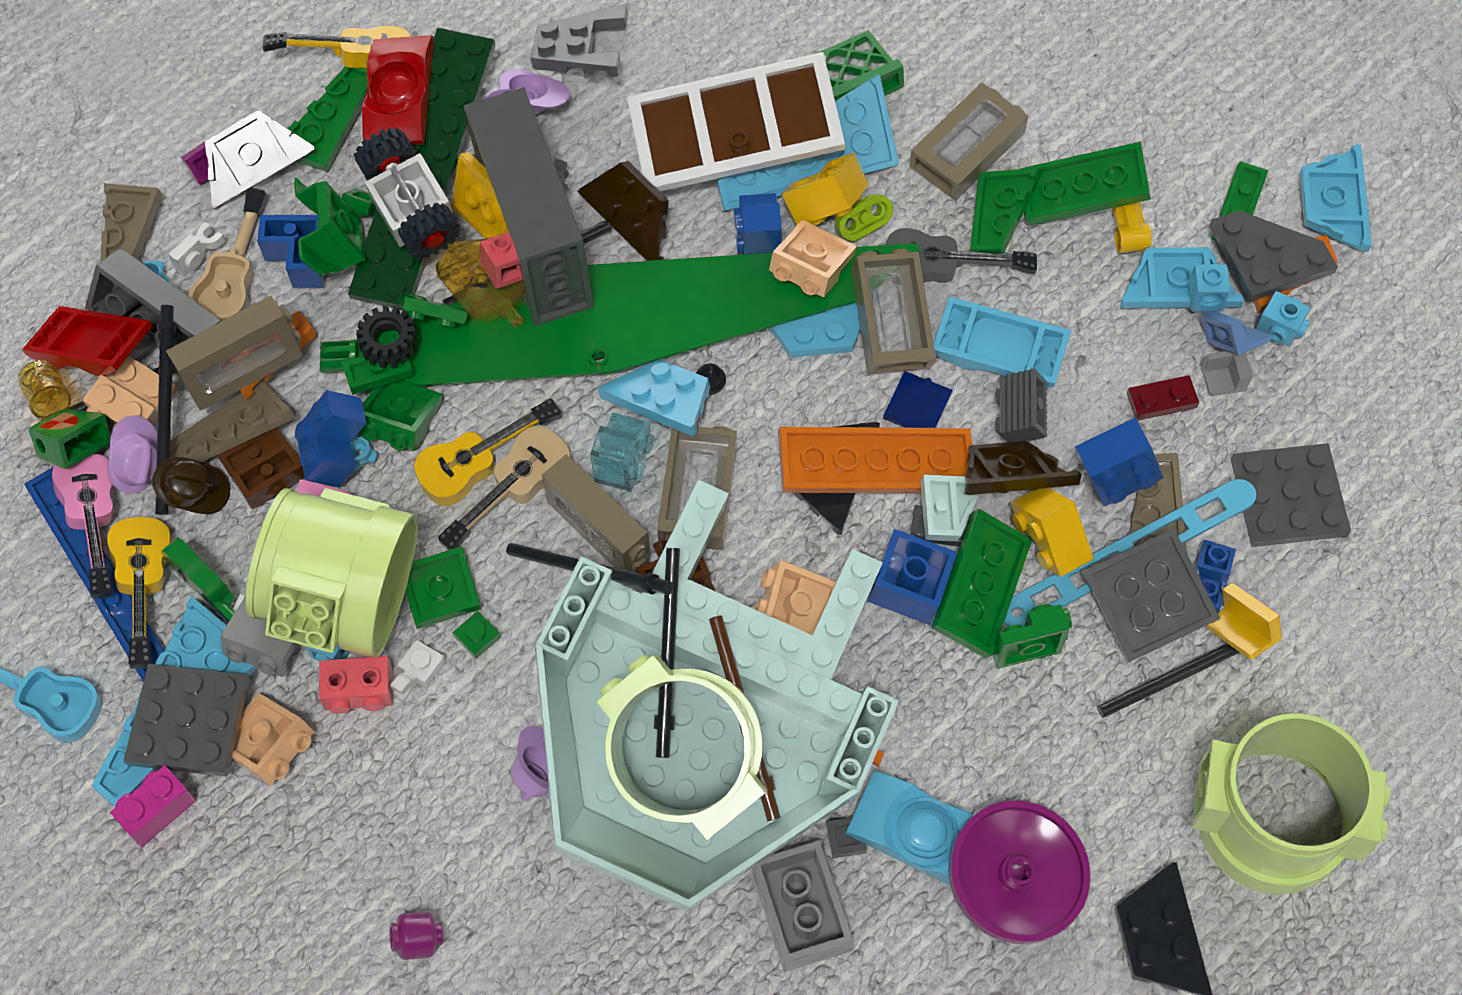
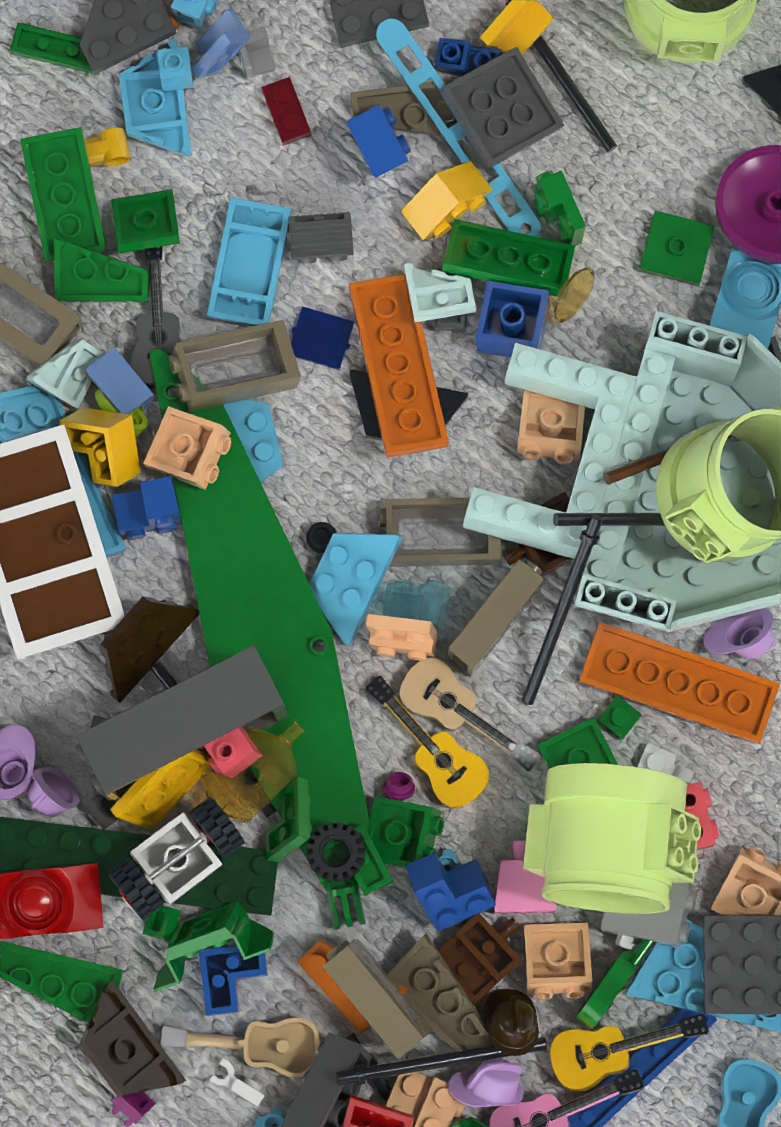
camera: 100 degrees left, 15 degrees up
(232, 535) = (557, 960): none -> light nougat plate
(446, 417) = (399, 786): none -> magenta plate
(491, 705) = (679, 682): none -> orange plate
(589, 419) = (402, 635): none -> light nougat plate
(888, 212) = (120, 383): none -> medium blue panel
(904, 174) = (65, 373): none -> light aqua wing
(934, 639) = (573, 294): none -> clear yellow piece
(980, 763) = (676, 248): none -> green plate
(1013, 468) = (392, 239): dark brown wing -> none
(1052, 253) = (145, 221): none -> green plate

